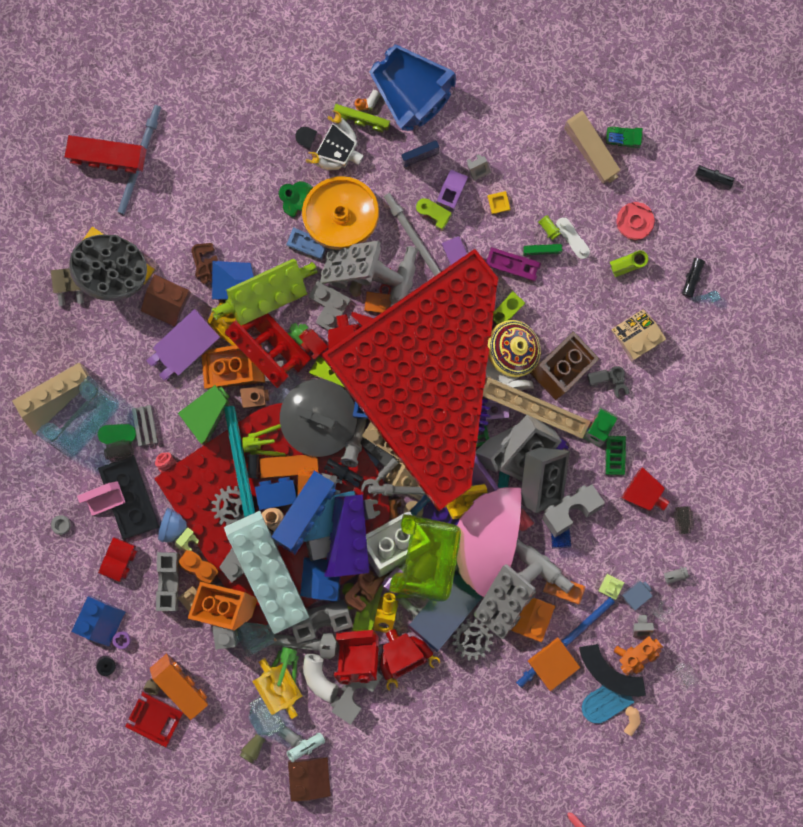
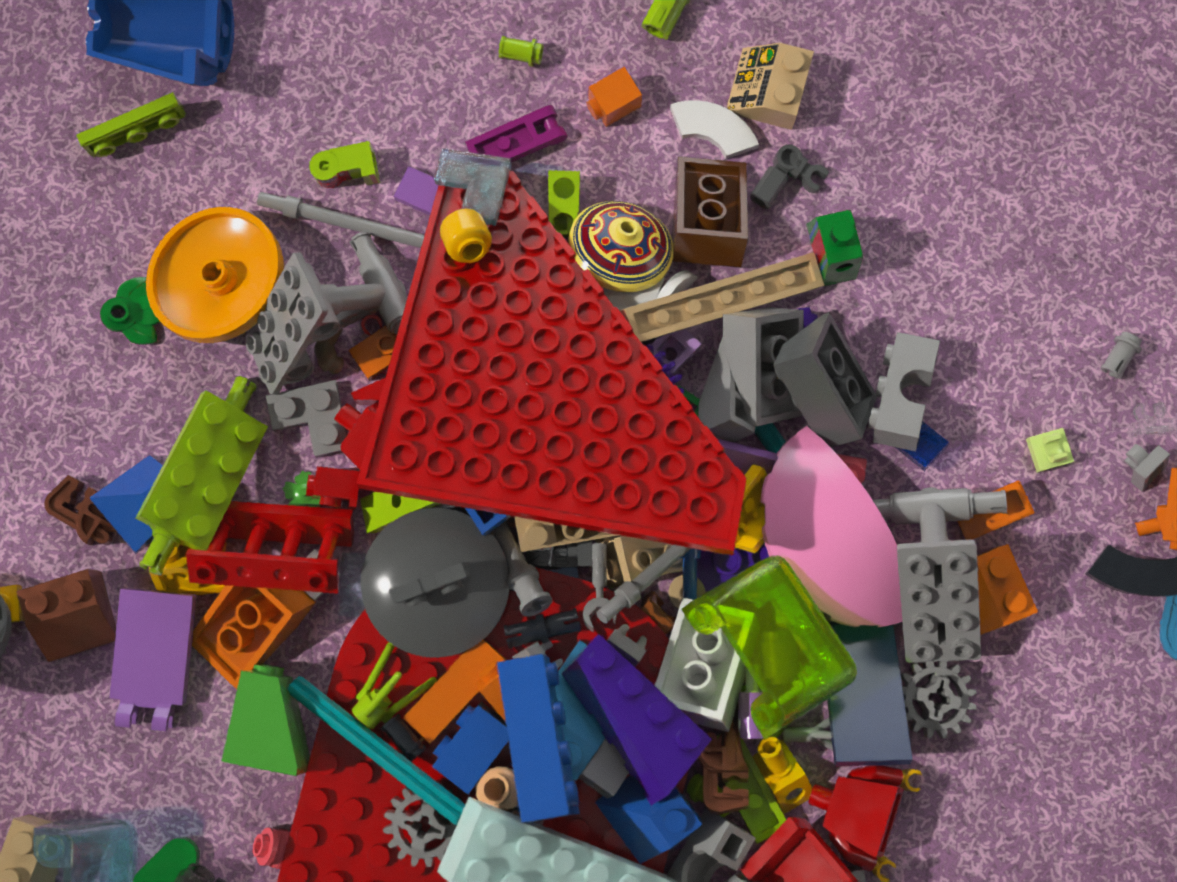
camera: 45 degrees left, 5 degrees down
(137, 427) = (171, 802): light grey tile -> none
(254, 397) = (319, 637): nougat brick -> none
(303, 242) = (205, 360): medium blue plate -> none
(305, 136) = (78, 218): black tile -> none
(337, 146) = (131, 191): torso -> none
(369, 103) = (128, 97): arm -> none
(420, 153) = (254, 99): dark blue tile -> none
(451, 190) = (343, 114): medium lavender slope -> none
(452, 291) = (465, 236): none -> yellow head
(478, 167) = (353, 54): light grey tile -> none
(483, 270) = (480, 175): none -> clear light blue tile
(498, 202) = (422, 78): yellow tile -> none
(542, 249) = (537, 85): green tile -> none
(553, 664) = (1078, 628): orange tile -> none
(568, 282) = (613, 97): none -> orange brick
(572, 636) = (1062, 586): blue bar -> none
(576, 243) = (577, 42): white piece -> none
(600, 330) = (714, 124): none -> white tile
(622, 439) = (897, 260): green slope -> none
(637, 594) = (1097, 428): sand blue brick -> none
(645, 491) = (974, 280): red torso -> none
(684, 520) = (1060, 272): clear smoke brick -> none

